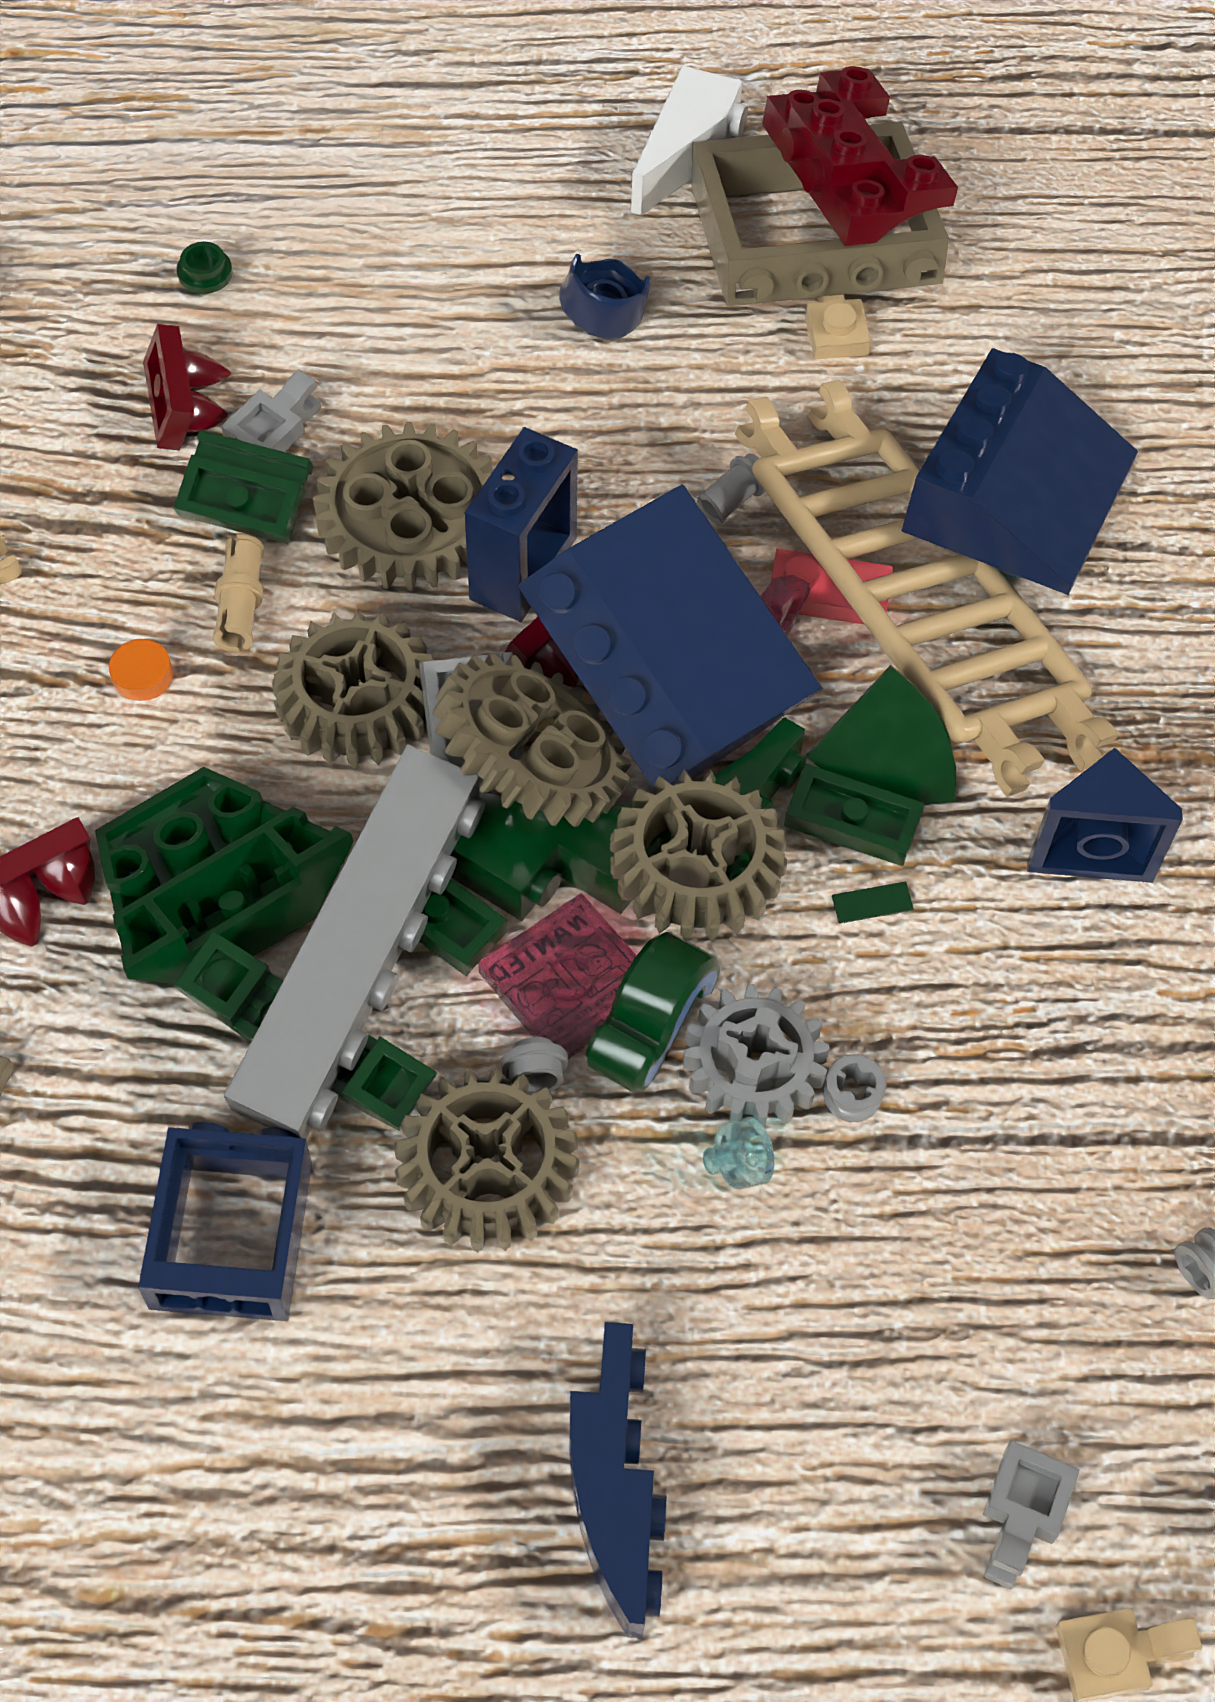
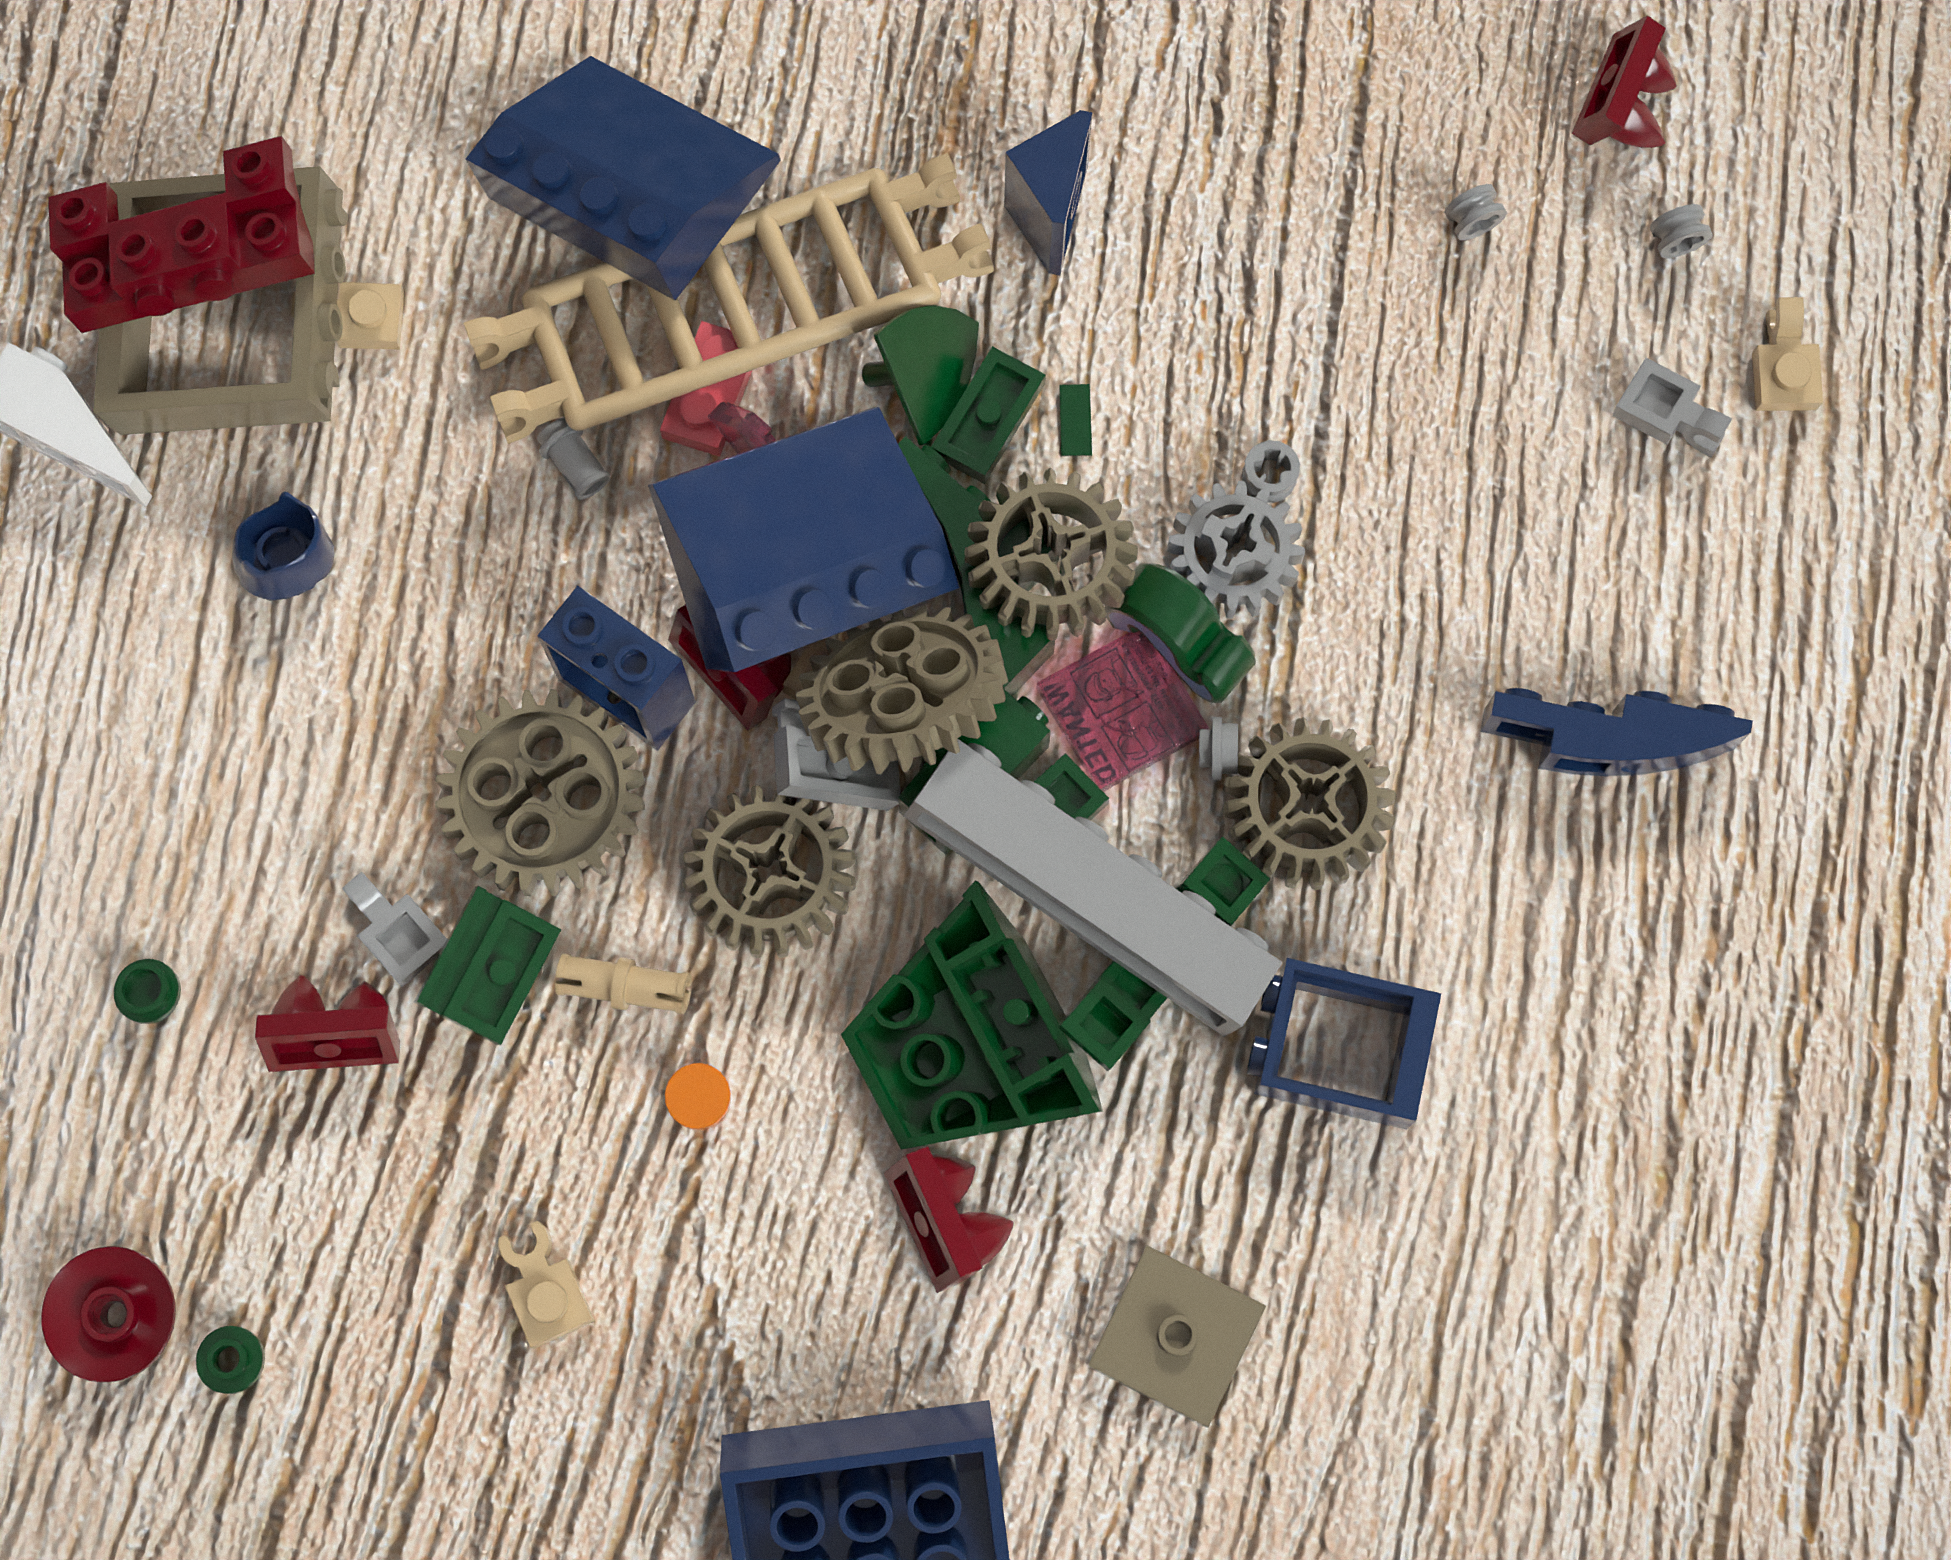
camera: 80 degrees left, 15 degrees up
(741, 1154) = (1330, 579): clear light blue tile -> none

